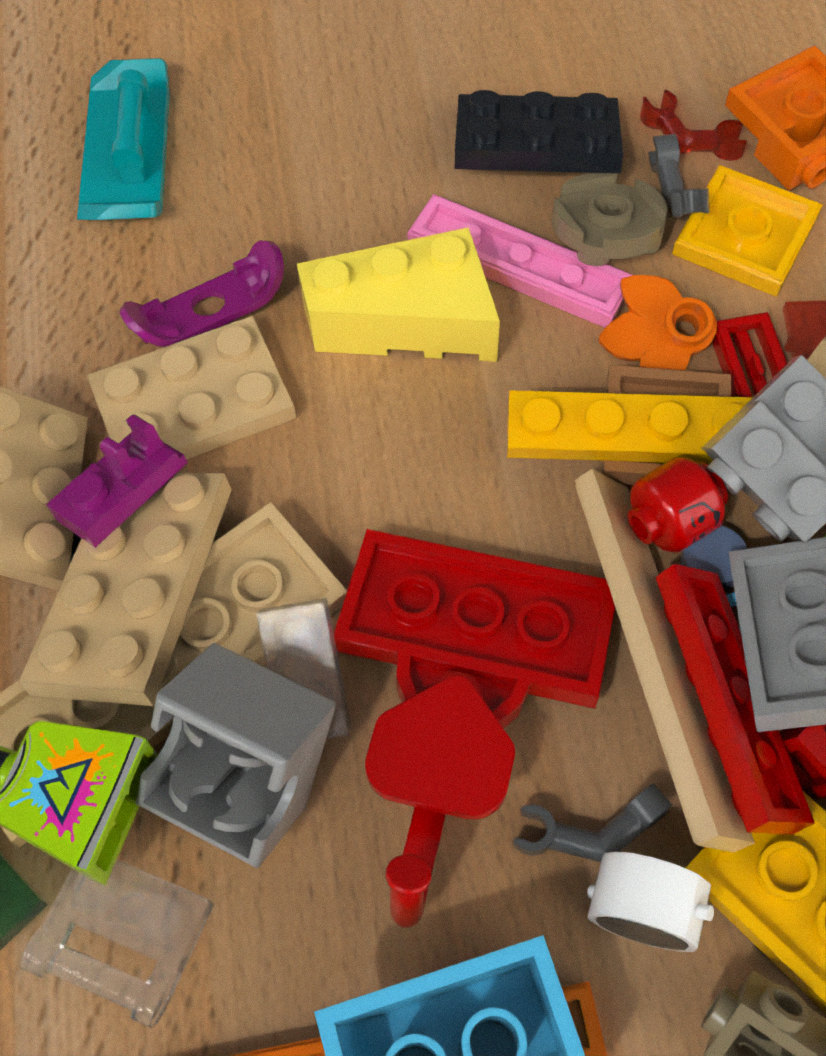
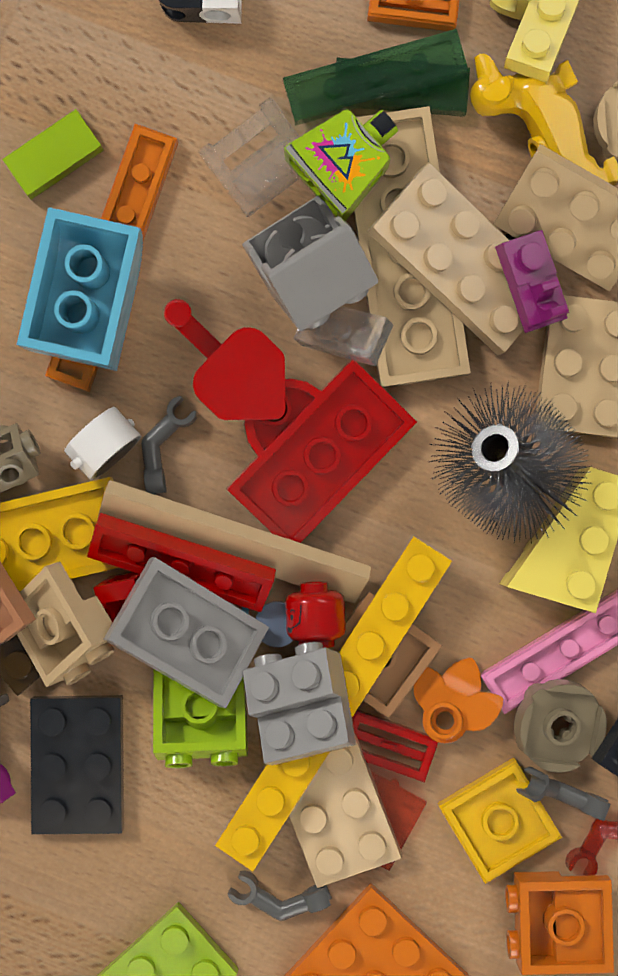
camera: 120 degrees right, 25 degrees up
(353, 340) = (511, 463): none -> black piece

